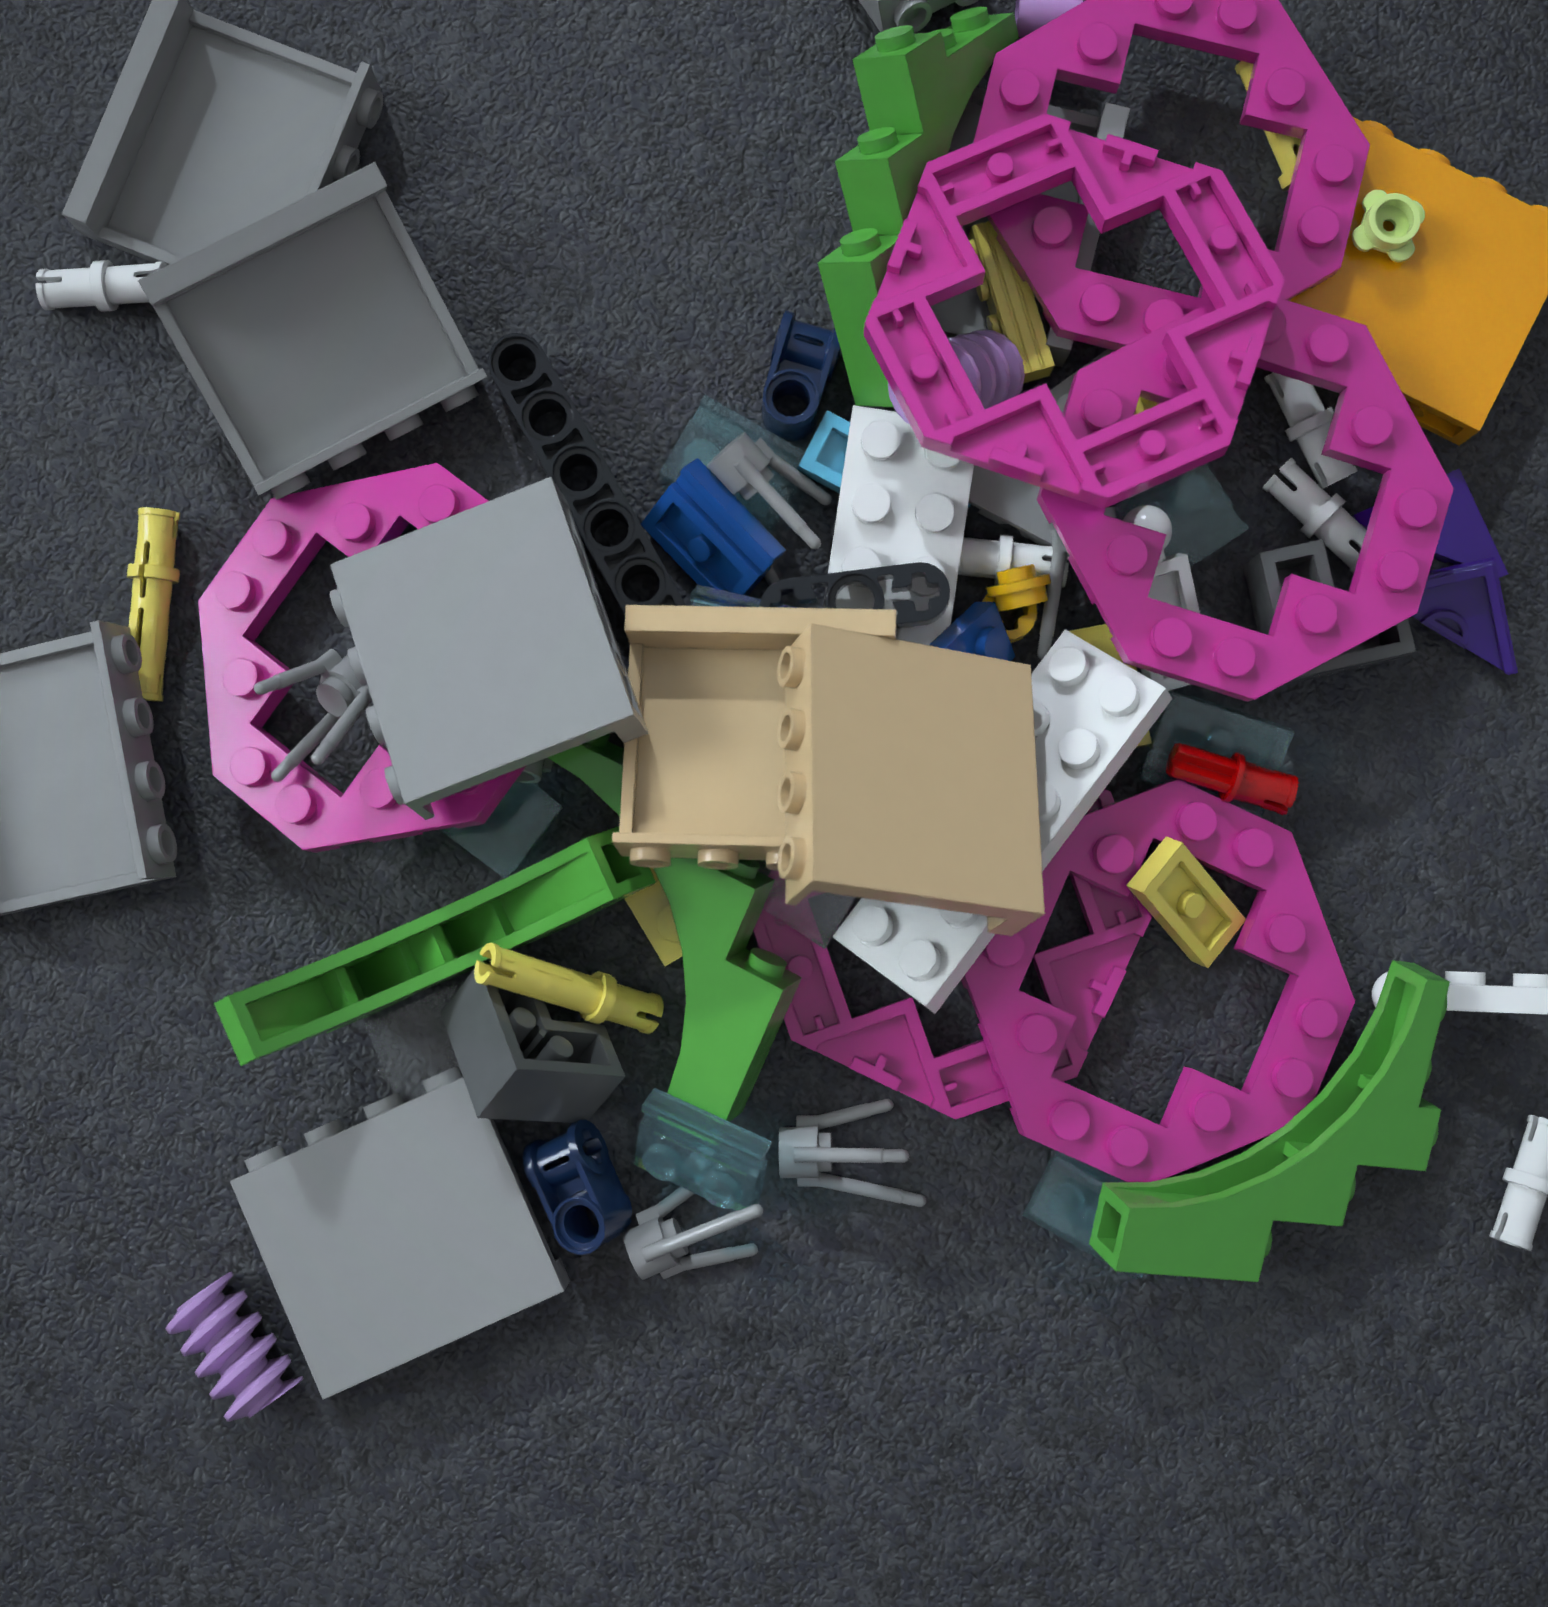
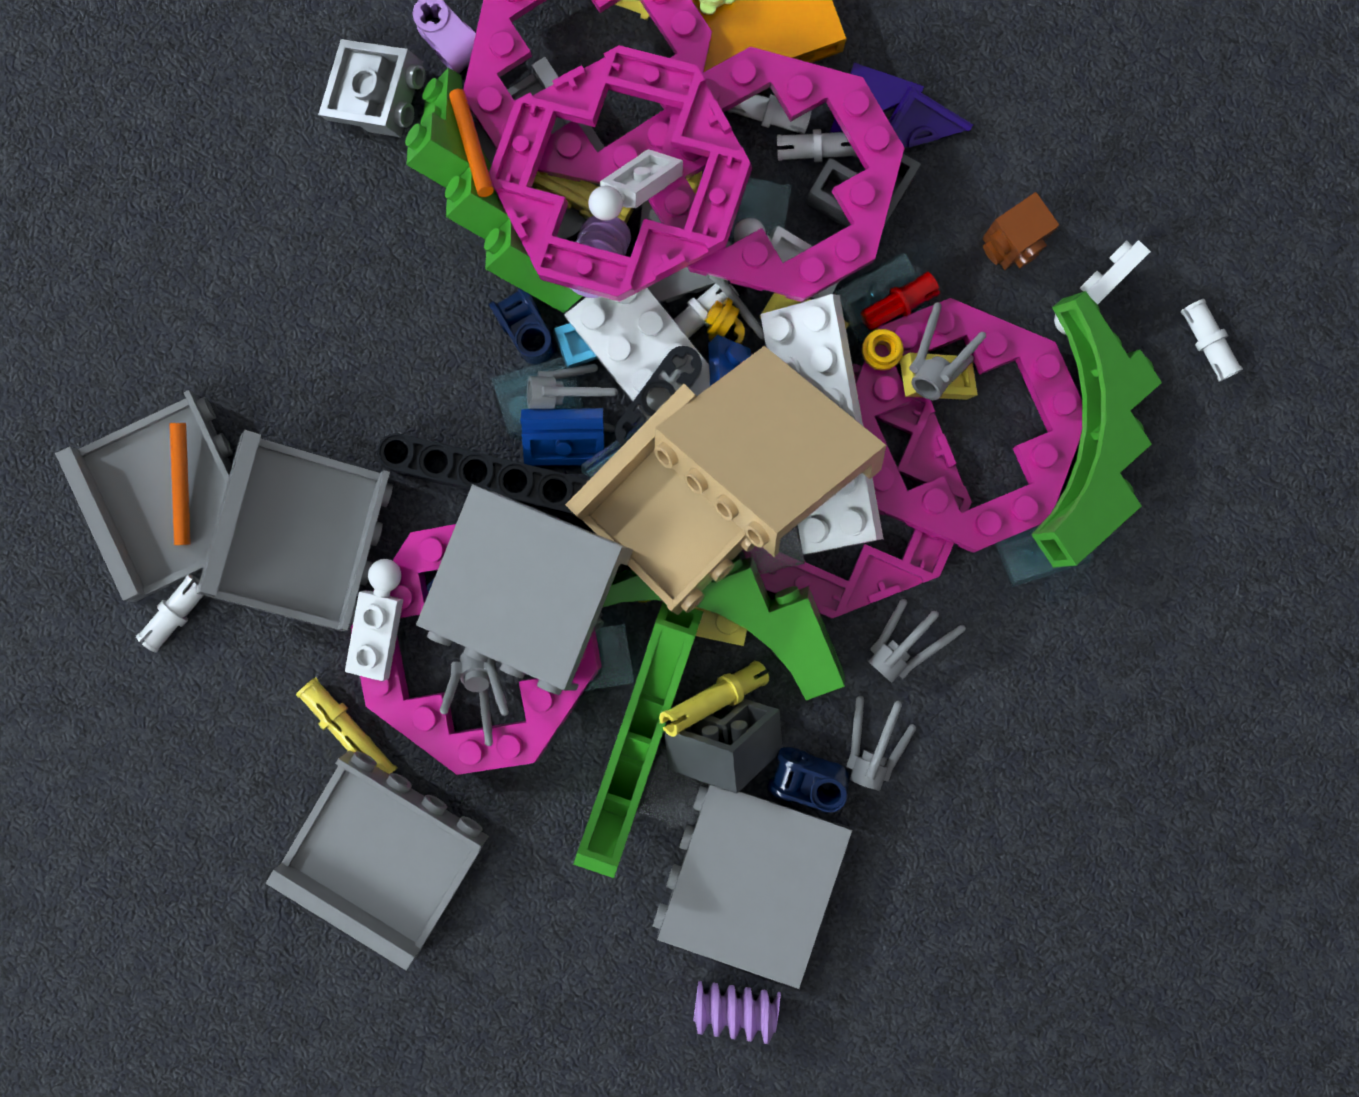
camera: 45 degrees left, 0 degrees up
(257, 157) = (180, 484): none -> orange bar
(296, 521) = (376, 624): none -> white plate
(701, 1152) = (846, 707): clear light blue plate -> none
(947, 110) = (471, 143): none -> orange bar
(1074, 333) = (634, 184): none -> white plate
(1174, 803) = (888, 339): none -> yellow plate
(1188, 898) = (937, 374): none -> light grey plant
(1444, 842) = (1020, 233): none -> dark orange brick

